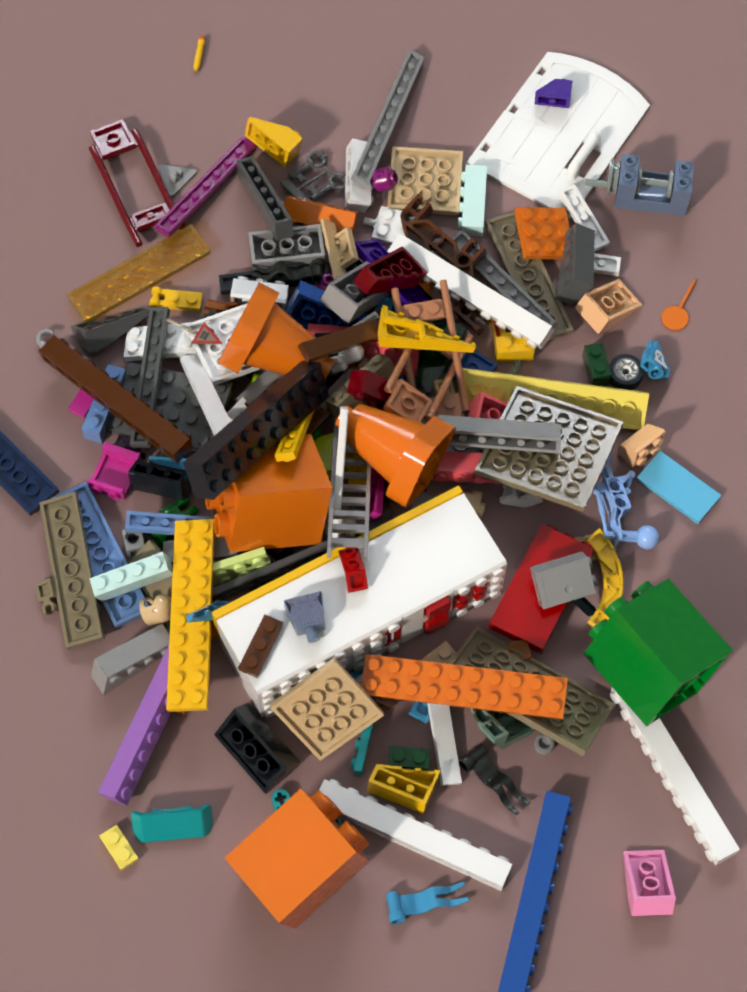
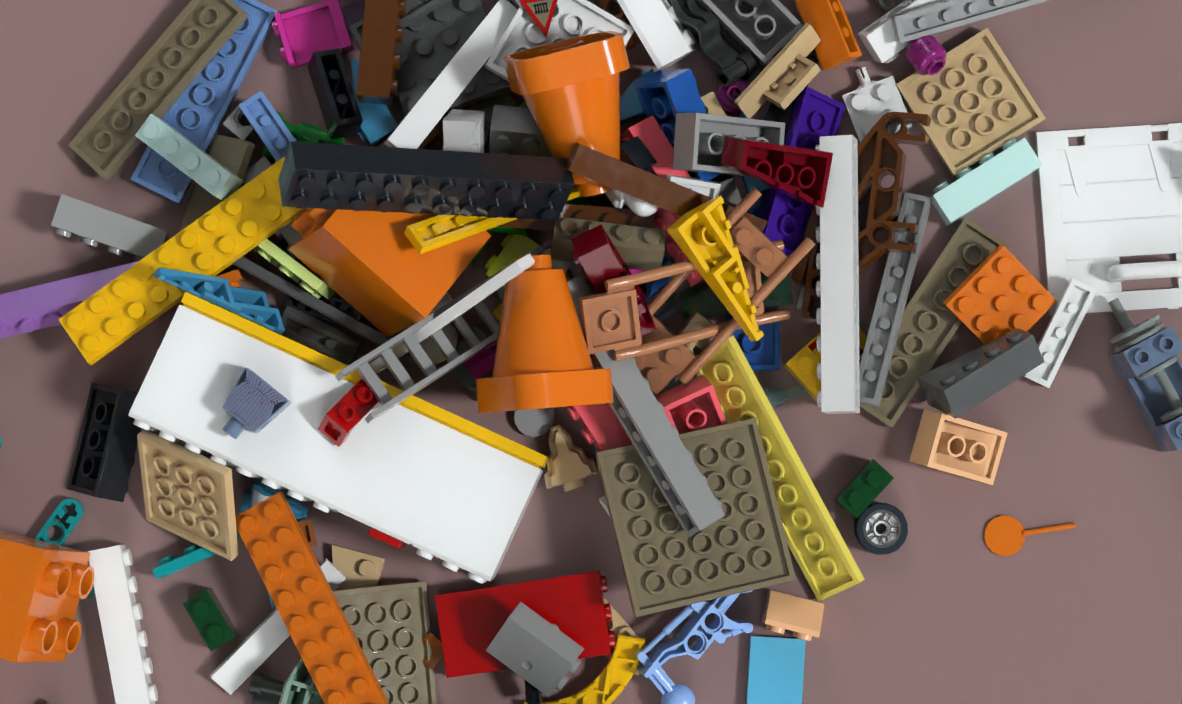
camera: 55 degrees right, 20 degrees up
(46, 594) = (113, 74): dark tan plate -> none
(158, 612) = (175, 218): tan helmet -> none
(260, 646) = (182, 378): reddish brown plate -> none
(404, 786) = (176, 637): yellow wedge -> none
(606, 264) = (1014, 404): white plate -> none
(654, 361) = (919, 553): dark azure rock -> none

